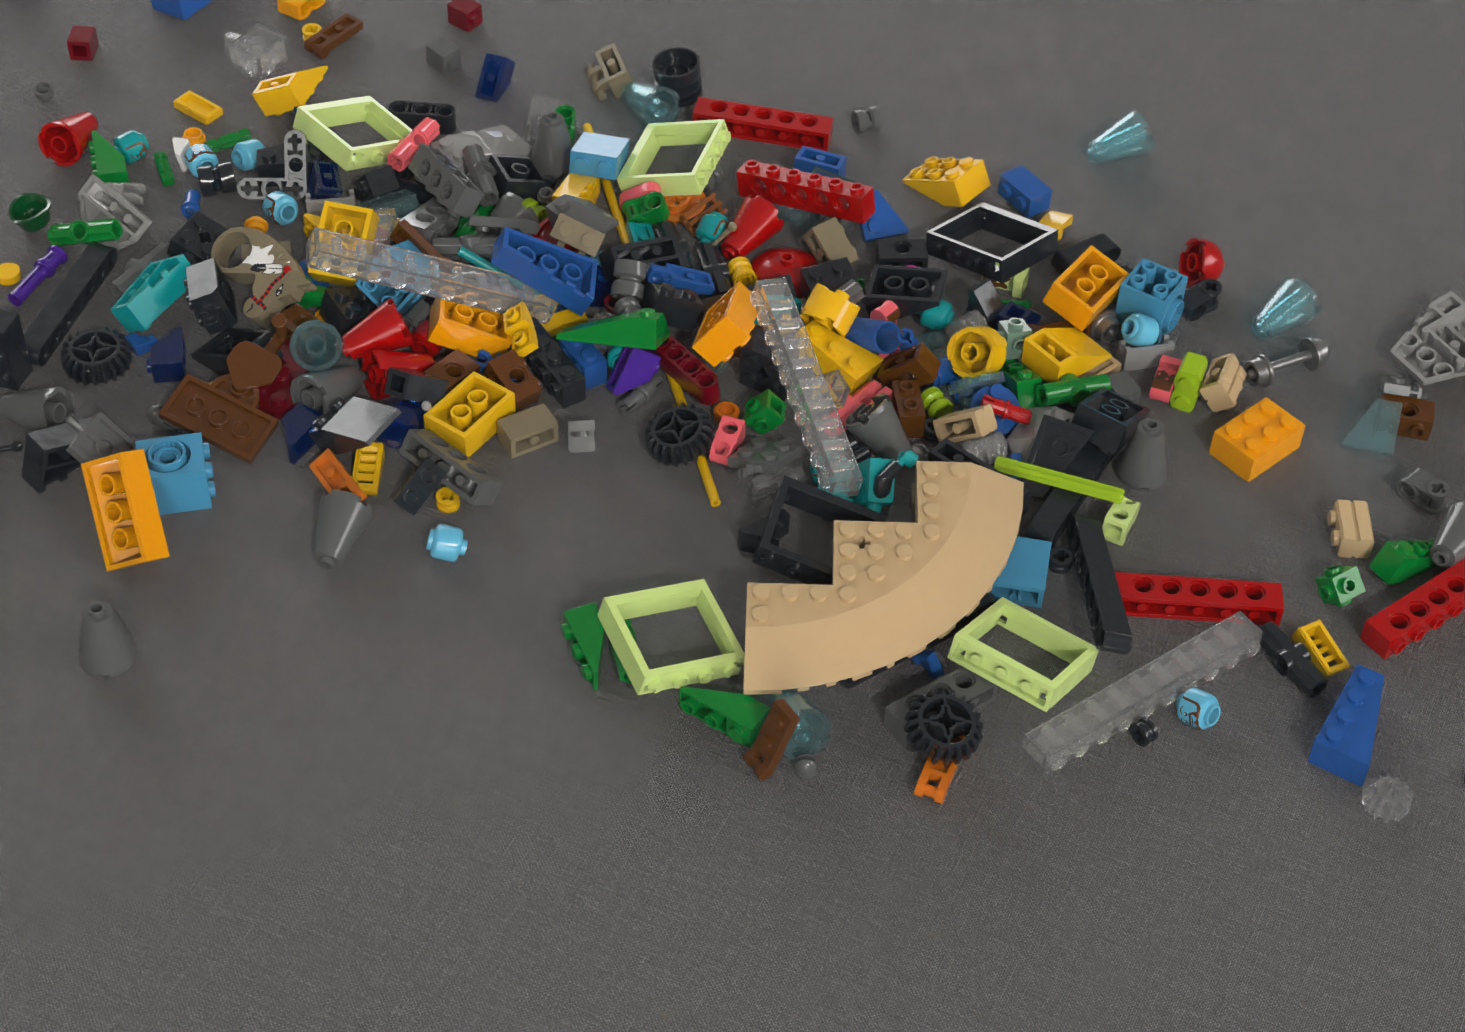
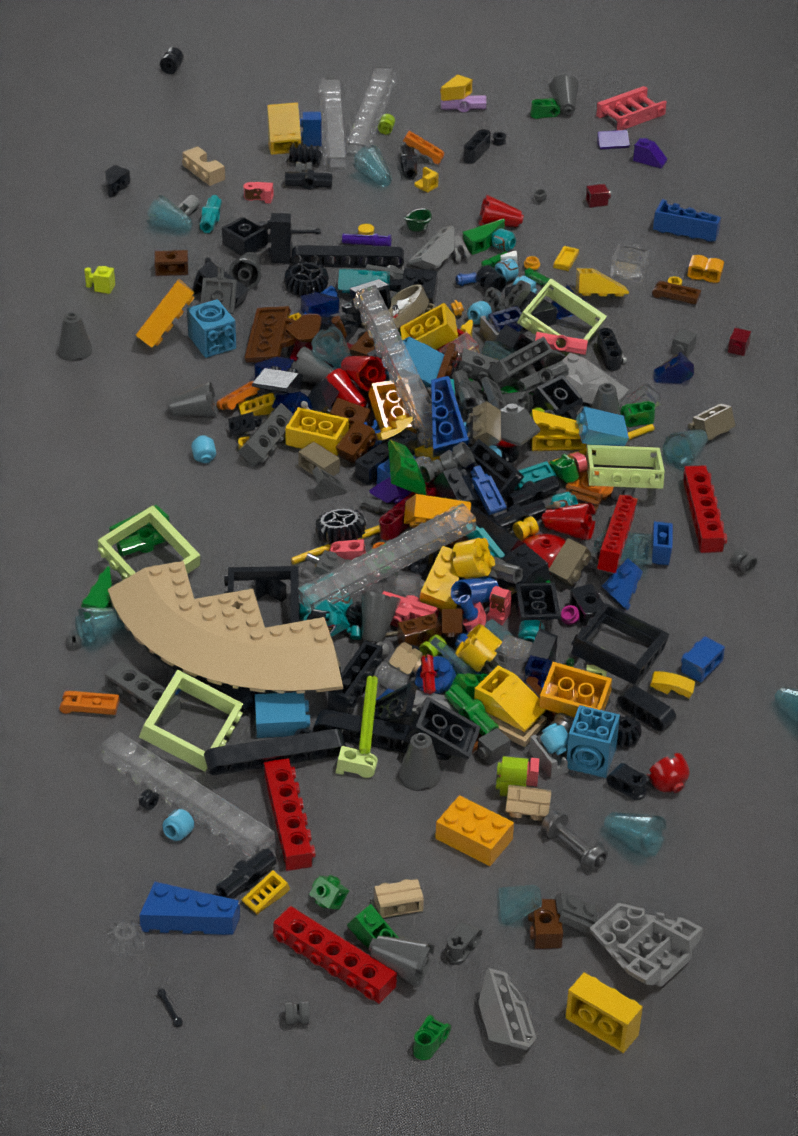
camera: 75 degrees right, 5 degrees down
(85, 232) = (408, 242): green piece -> none
(680, 71) = (722, 451): black wheel -> none
(772, 739) = (75, 602): reddish brown plate -> none
(935, 734) = (93, 687): black gear -> none
(949, 179) = (696, 617): yellow slope -> none
(1014, 332) = (512, 663): sand green brick -> none

